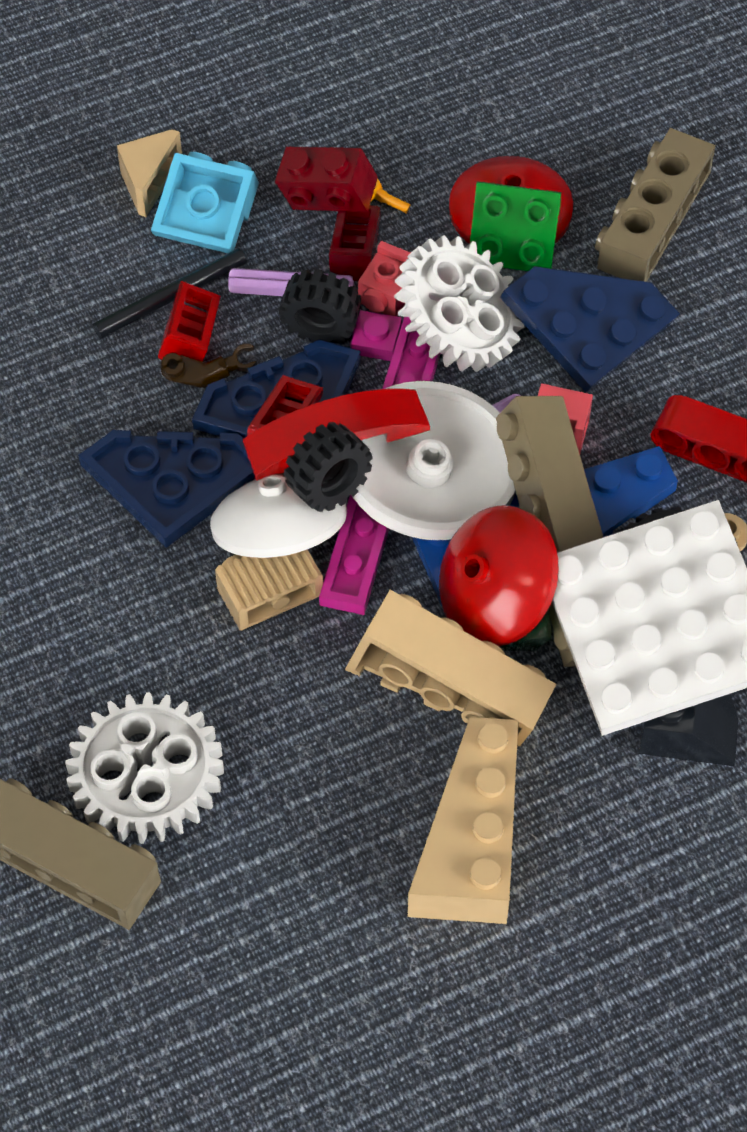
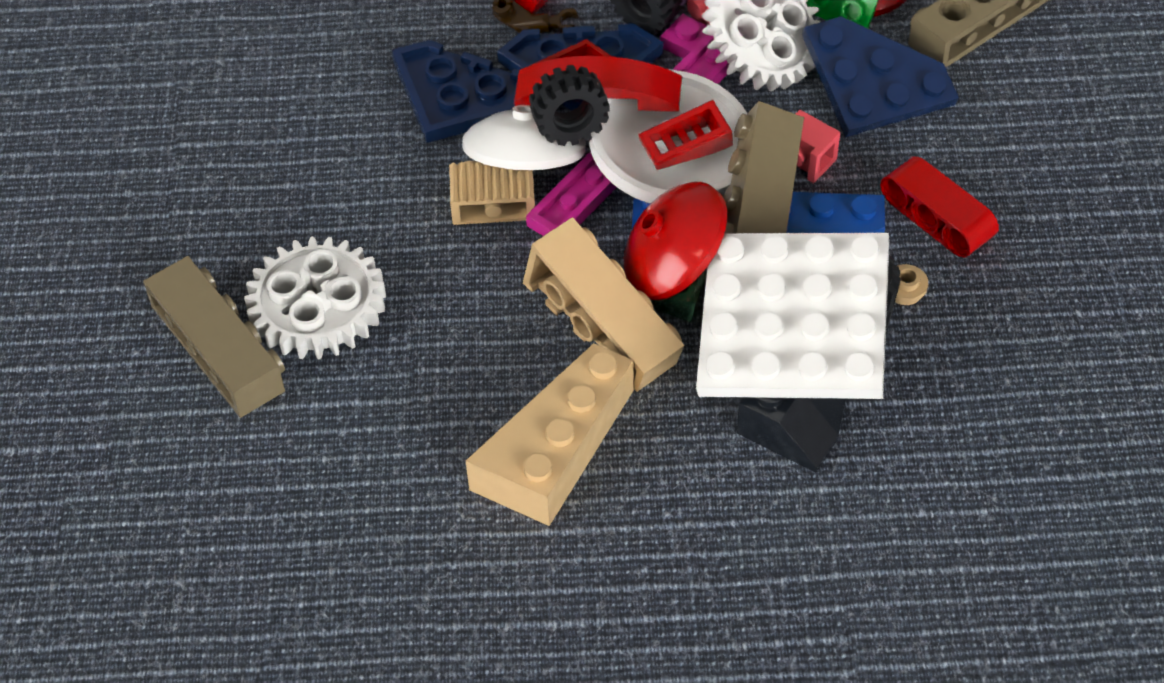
camera: 25 degrees right, 5 degrees down
(472, 428) = (693, 120): none -> red slope

